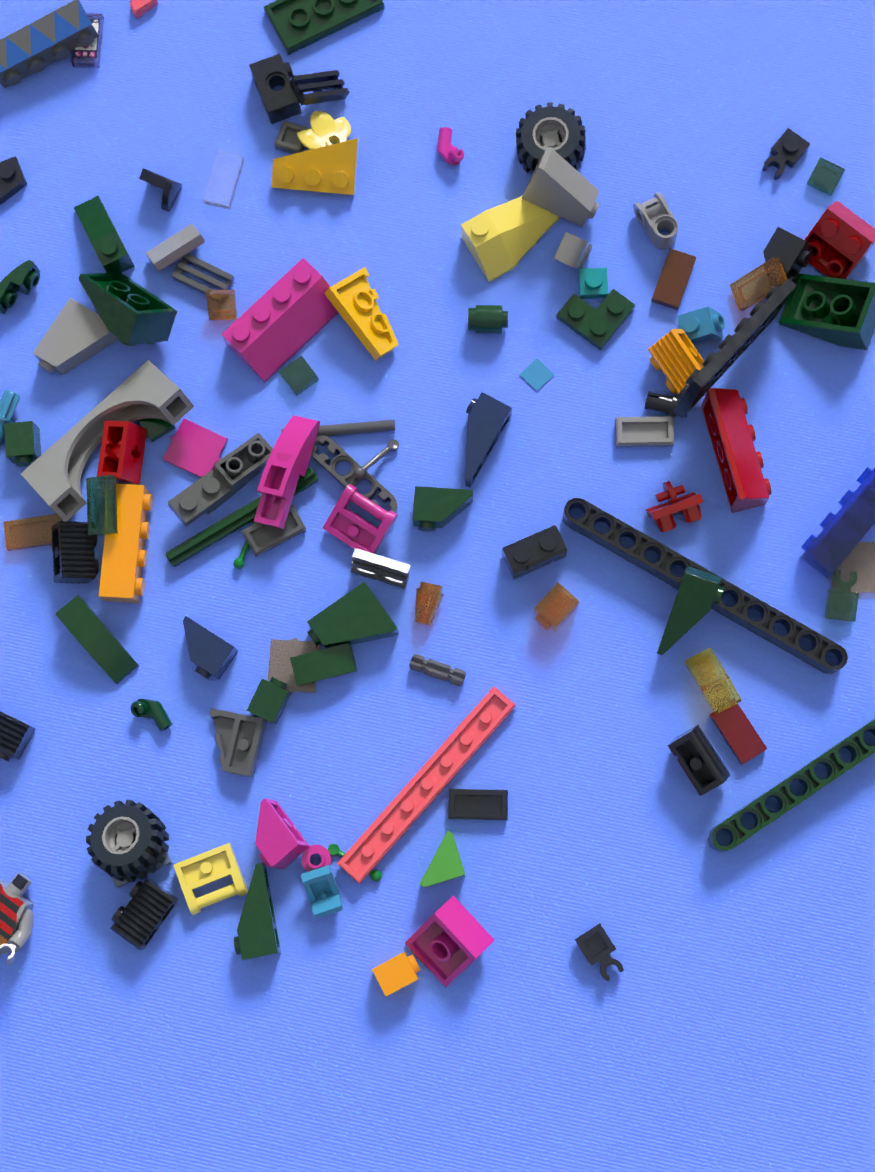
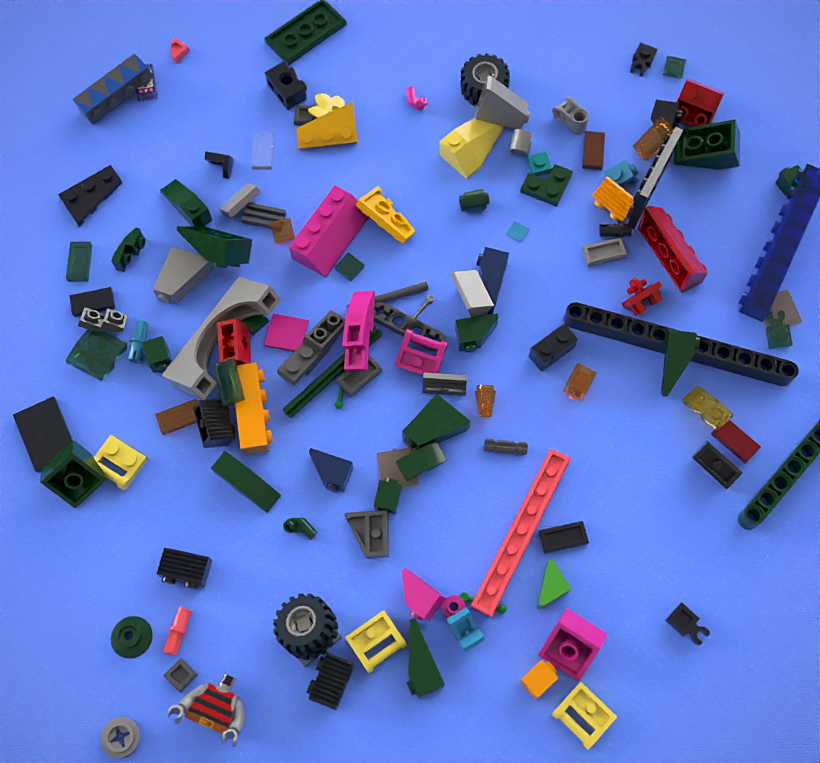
camera: 20 degrees left, 10 degrees down
(317, 82) = (316, 78): black tile -> none
(444, 454) = (472, 292): none -> slope
(448, 1025) = (589, 709): none -> light yellow plate

